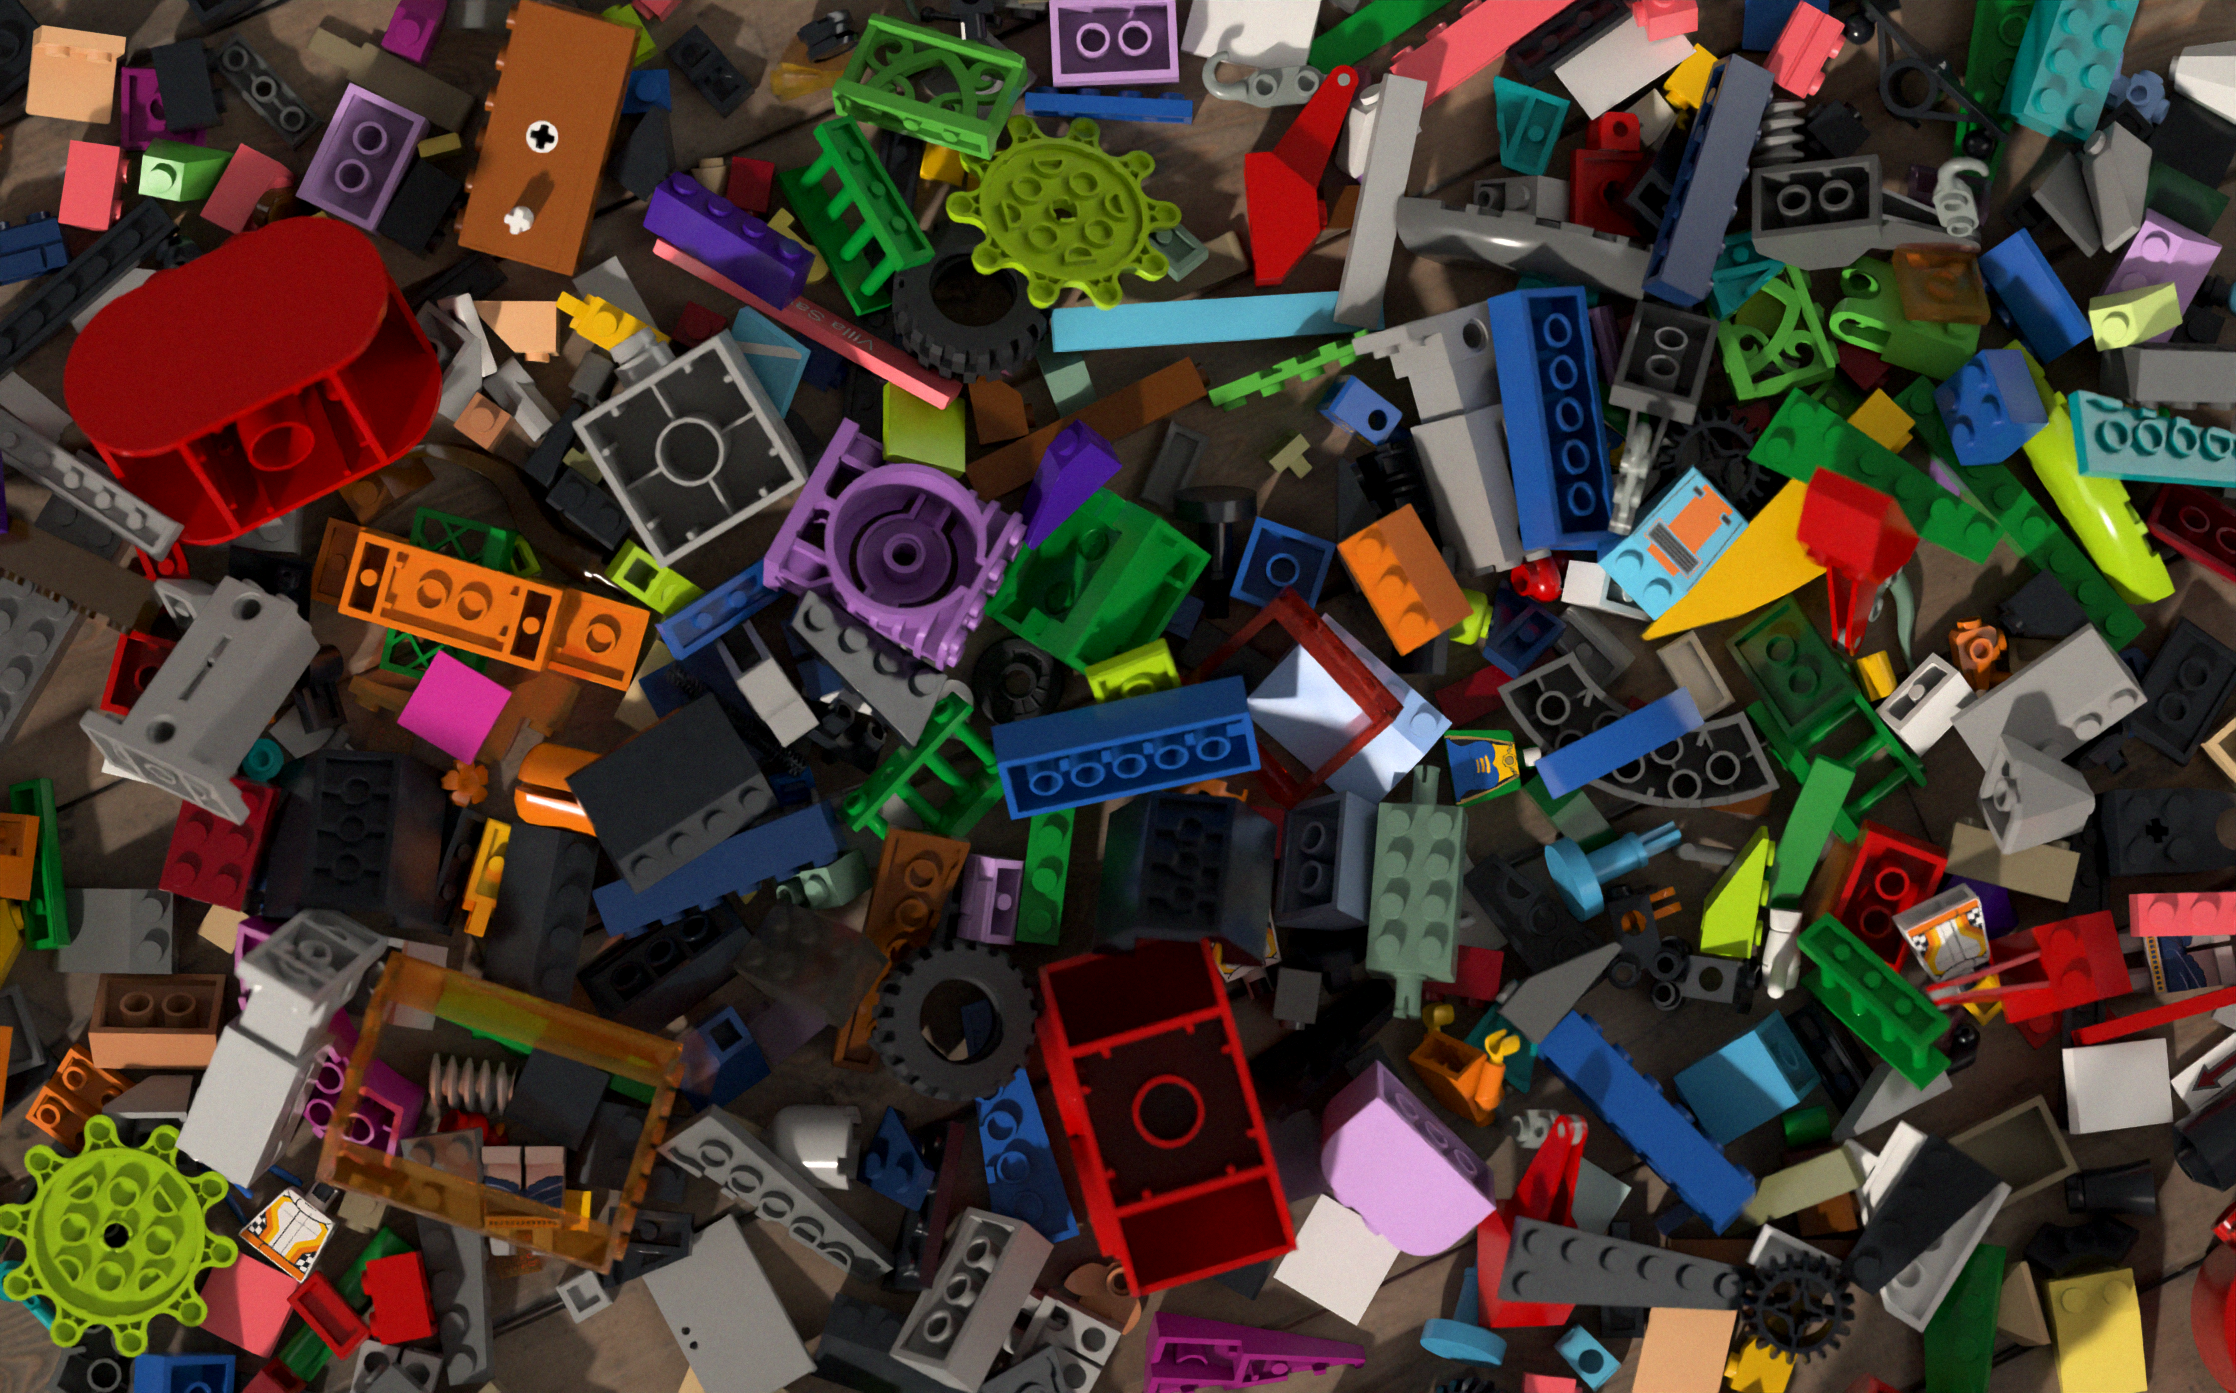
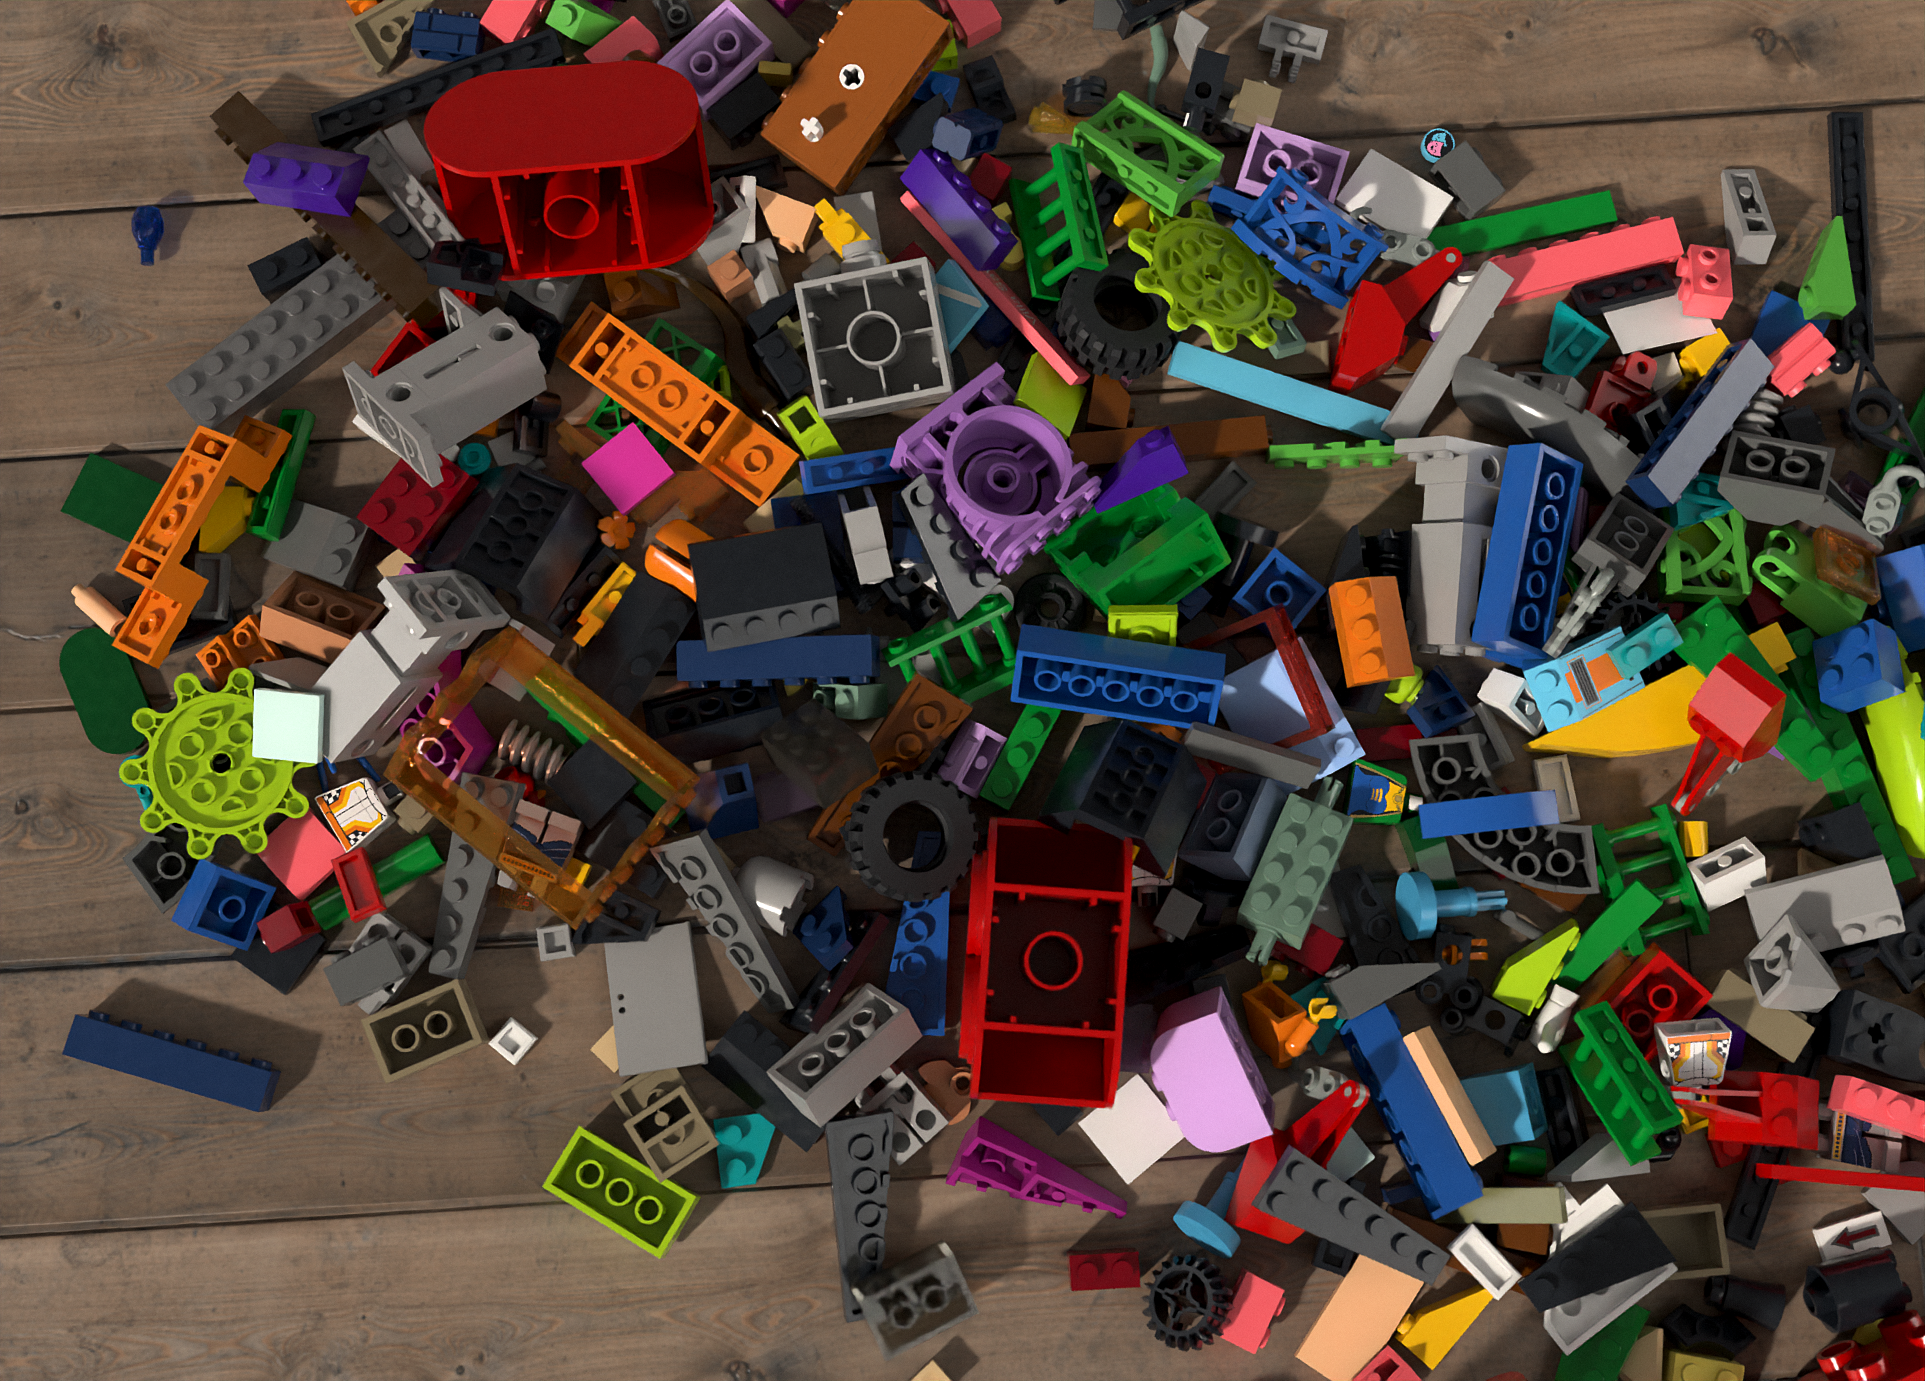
camera: 15 degrees right, 5 degrees down
(177, 543) = (468, 265): none -> black slope
(180, 1163) = (288, 725): none -> light aqua tile
(399, 1298) = (414, 890): red brick -> none
(703, 141) = (966, 133): none -> dark blue brick
(789, 789) = (853, 622): blue slope -> none
(1065, 378) = (1167, 398): sand green slope -> none
(1108, 141) = (1263, 238): none -> blue fence
(1287, 453) = (1311, 515): olive tile -> none
(1316, 777) = (1251, 754): none -> dark grey tile
(1349, 405) = (1373, 495): blue torso -> none
(1541, 577) = (1467, 672): red animal -> none
(1587, 1356) = (1296, 1275): medium azure leg -> none
(1684, 1086) = (1450, 1095): none -> light nougat tile
(1728, 480) = (1644, 645): none -> teal plate
(1792, 667) = (1635, 808): dark green tile -> none
(1815, 1310) = (1472, 1312): black gear -> none
(1904, 599) = (1730, 800): sand green animal -> none
(1974, 651) = (1778, 846): orange piece -> none
(2117, 1085) = (1778, 1218): white tile -> none

